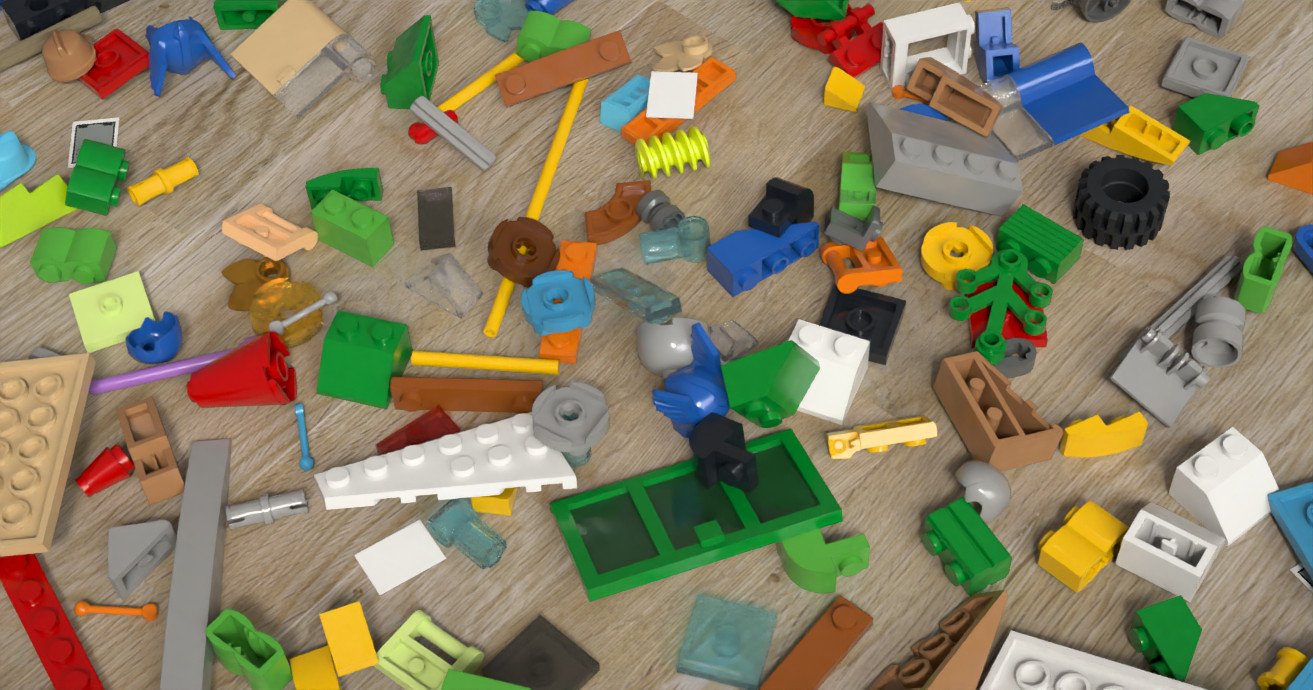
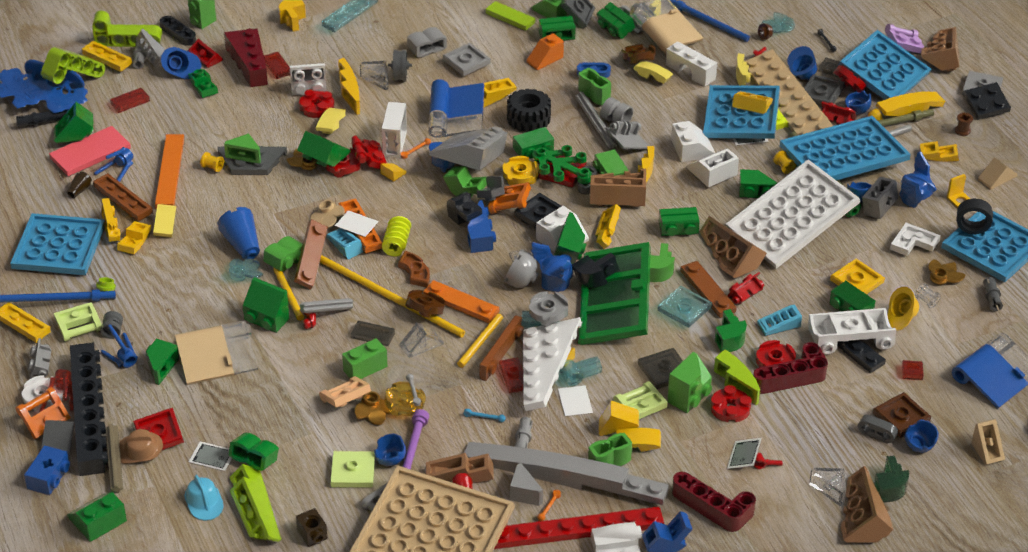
camera: 70 degrees left, 10 degrees down
(73, 255) = (304, 473): bright green brick -> none
(162, 181) = (272, 427): yellow pin -> none
(179, 50) = (177, 393): blue helmet -> none
(246, 376) = (442, 417): red cone -> none
(357, 184) = (332, 357): green slope -> none
(362, 358) = (454, 378): green slope -> none
(551, 318) = (463, 304): dark azure plate -> none
(637, 295) = (488, 266): clear light blue plate -> none
(657, 211) = (431, 252): dark grey wheel -> none
(685, 241) = (453, 252): clear light blue piece -> none
(955, 95) = (433, 132): medium nougat slope -> none
(985, 485) = (655, 202): light grey hair -> none
(993, 46) = (416, 113): brick -> none
(1053, 378) = (609, 163): none -> bright green brick
(1082, 545) = (697, 190): yellow brick -> none
(1214, 120) = (499, 66): green slope -> none

